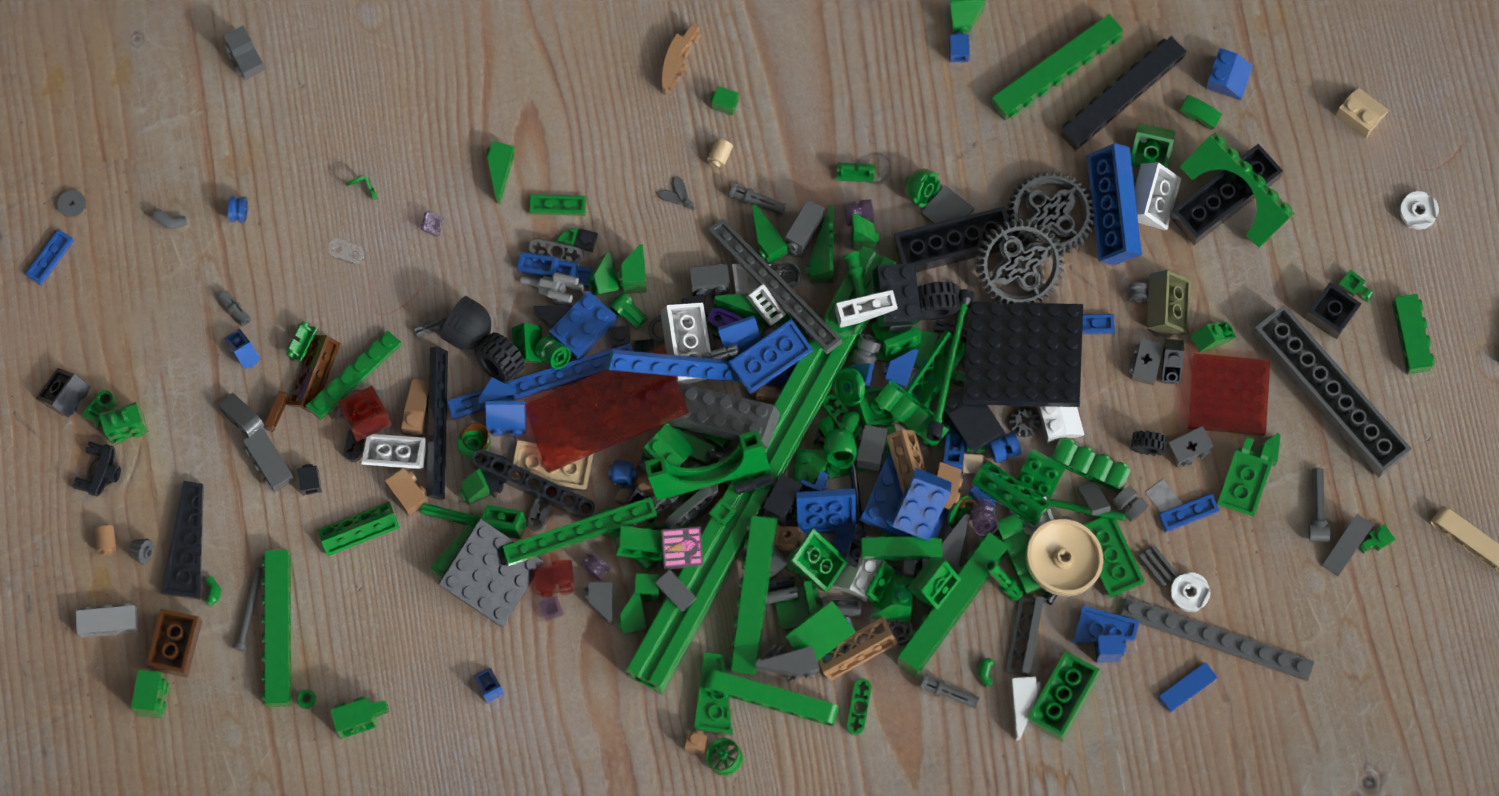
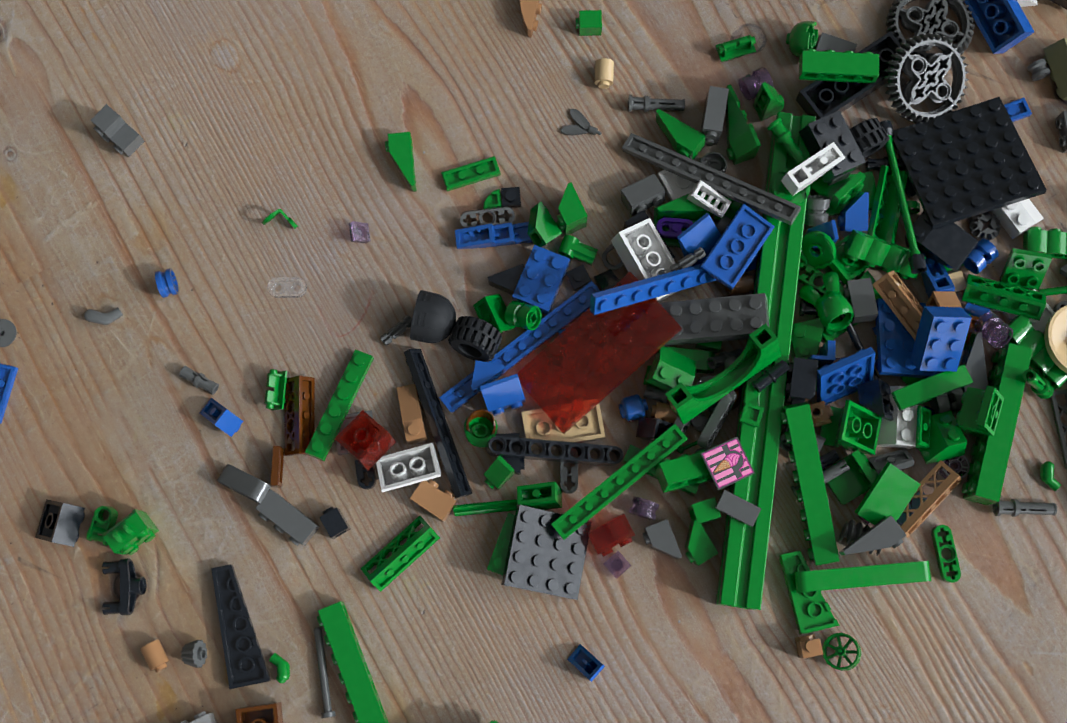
camera: 20 degrees left, 5 degrees up
(555, 287) = (500, 252): light grey plant -> none
(937, 222) = (838, 66): none -> green brick

